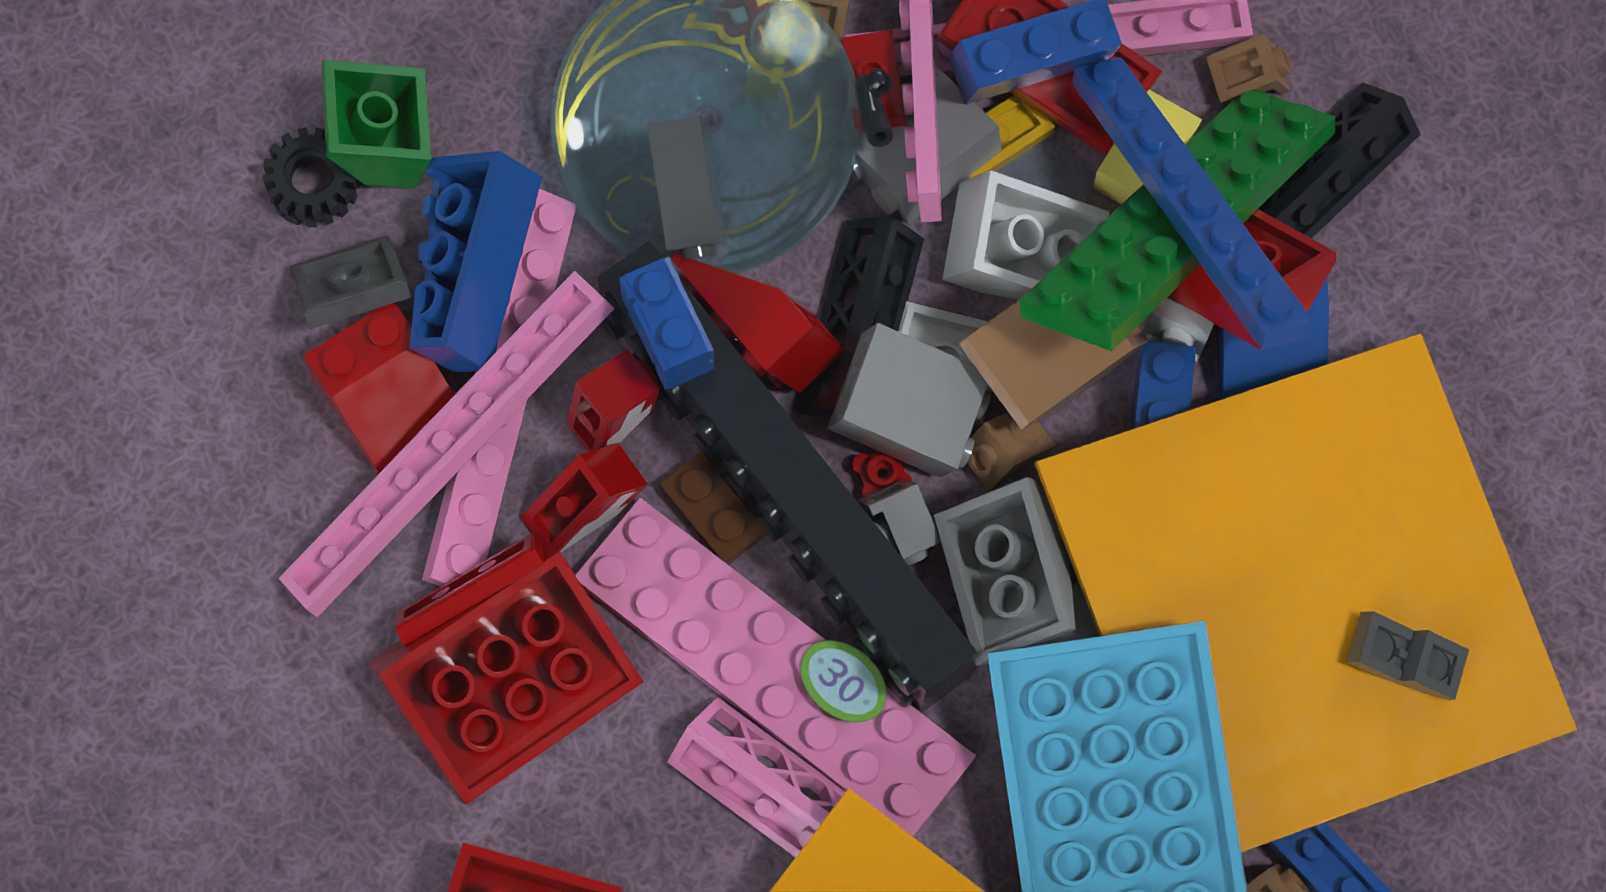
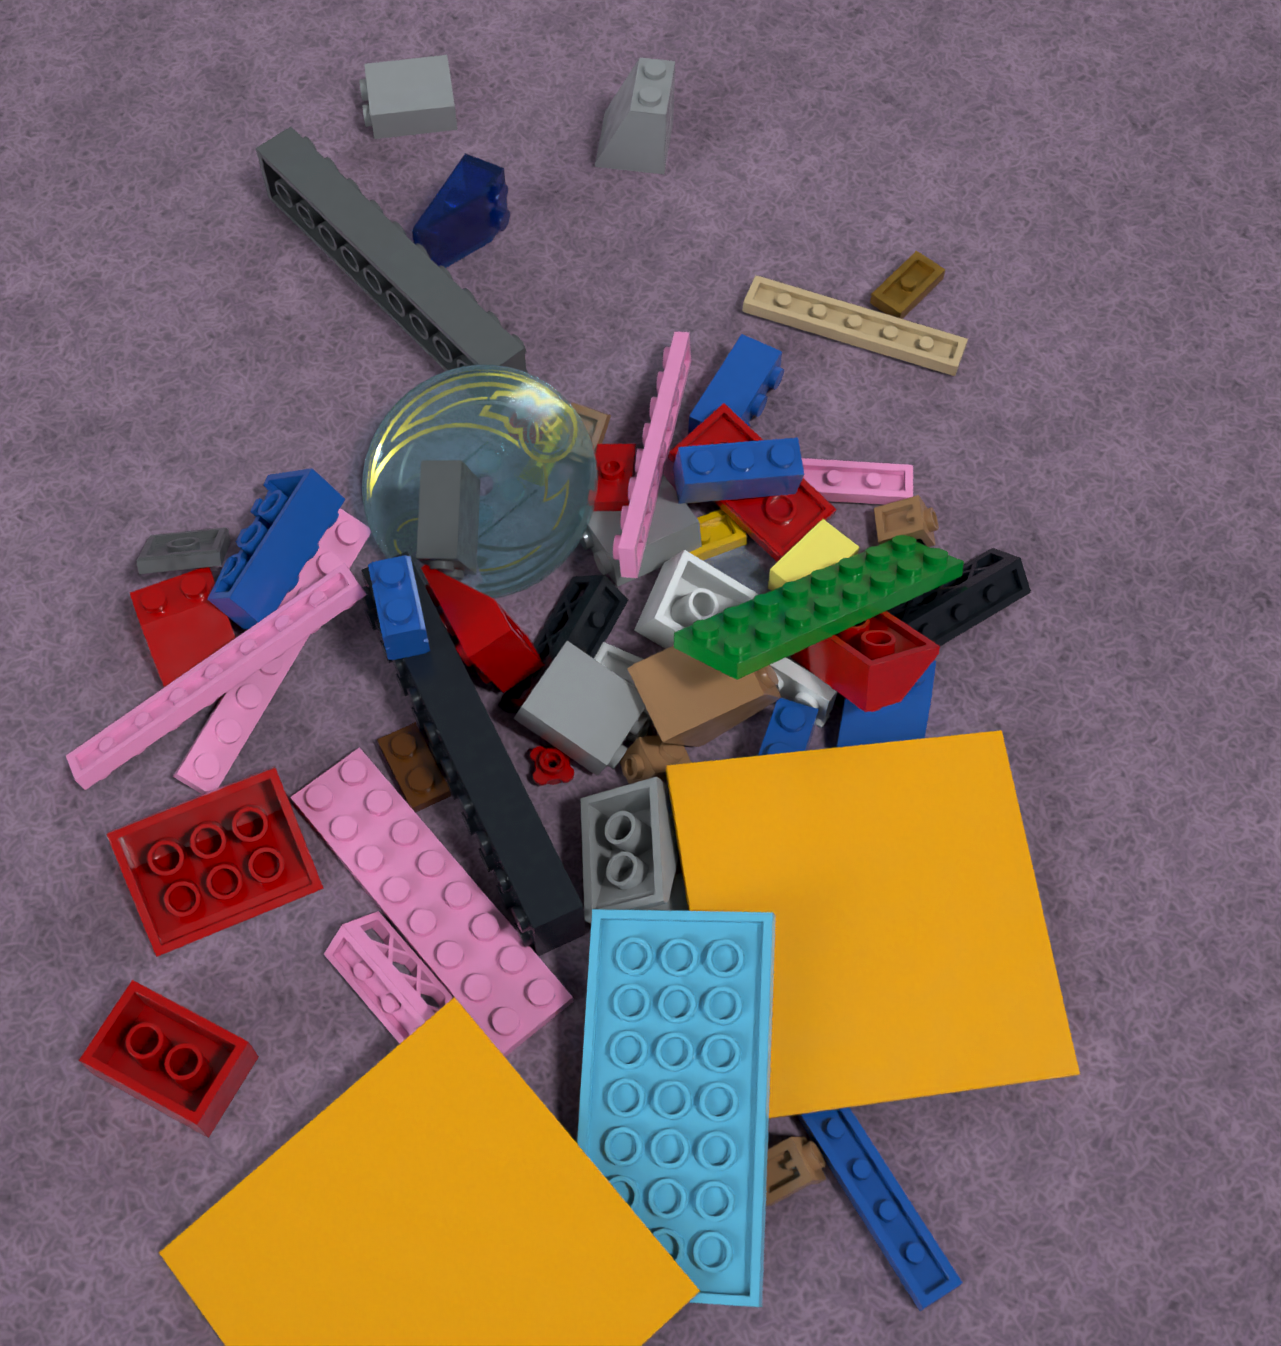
camera: 15 degrees right, 10 degrees down
(303, 206) = (179, 459): black tyre -> none
(377, 122) = (234, 442): green slope -> none
(469, 588) = (200, 786): red tile -> none
(584, 497) = (315, 737): red slope -> none
(612, 401) = (352, 669): red slope -> none
(843, 681) = (478, 916): clear light blue sticker -> none
(872, 108) = (604, 487): black arm -> none
(903, 519) = (556, 802): light grey brick -> none
(1193, 204) = (833, 594): blue plate -> none
(1407, 656) = (944, 983): dark grey slope -> none

